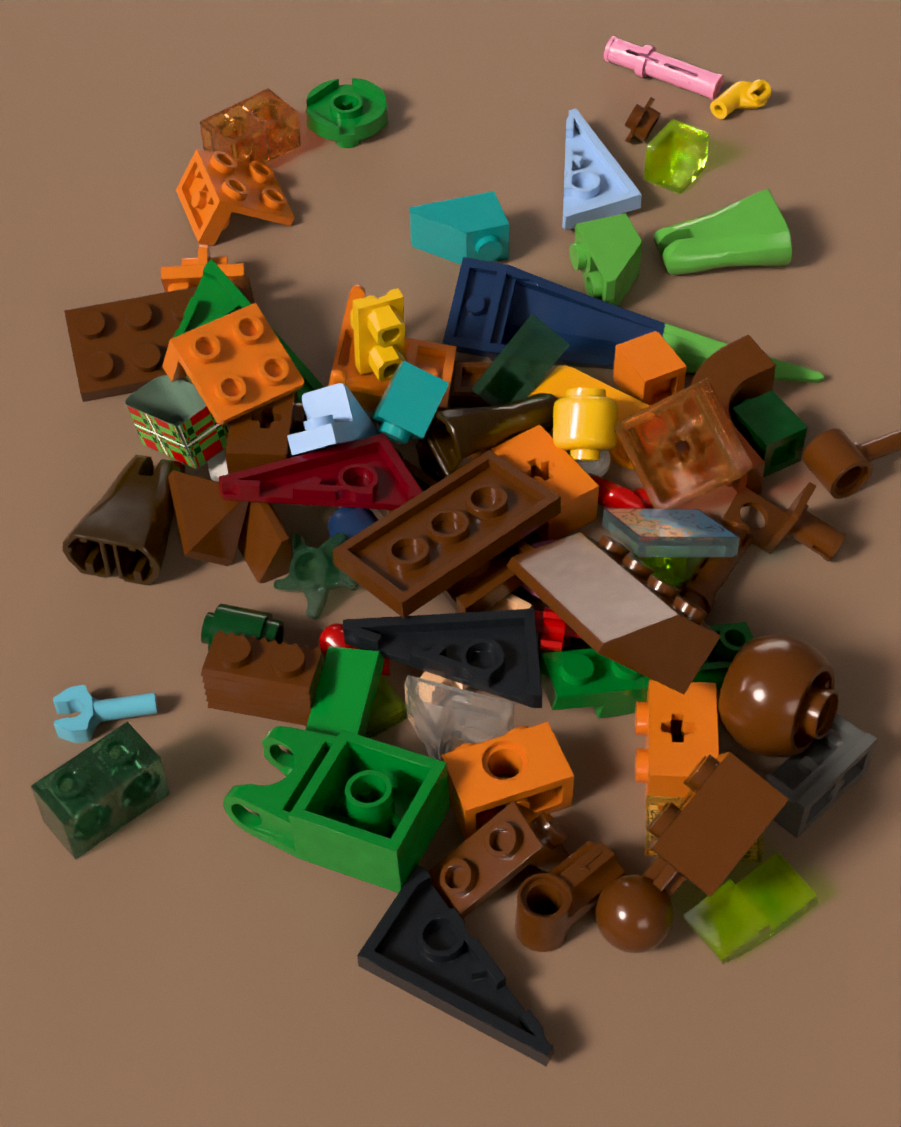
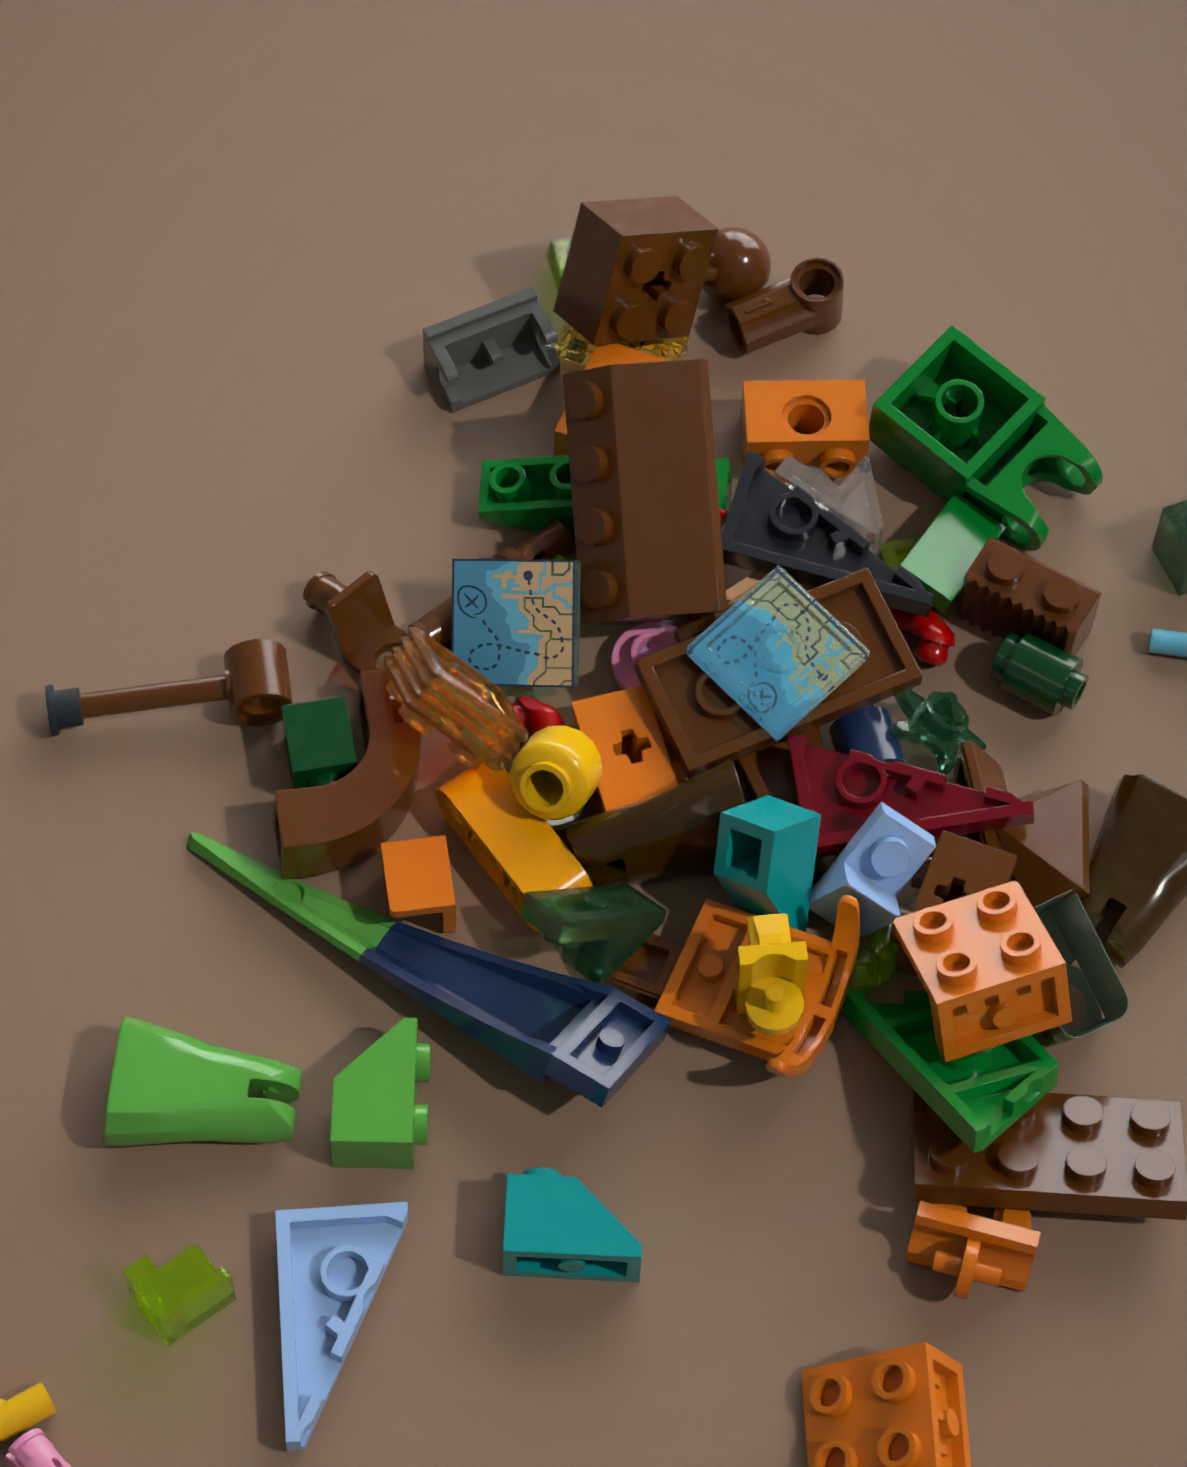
camera: 165 degrees left, 10 degrees up
(432, 956) = (917, 279): black wing -> none
(451, 522) = (778, 653): none -> clear light blue tile
(497, 855) = (826, 345): reddish brown bracket -> none
(642, 121) = (190, 1387): reddish brown plate -> none
(778, 696) = (498, 393): reddish brown wheel -> none

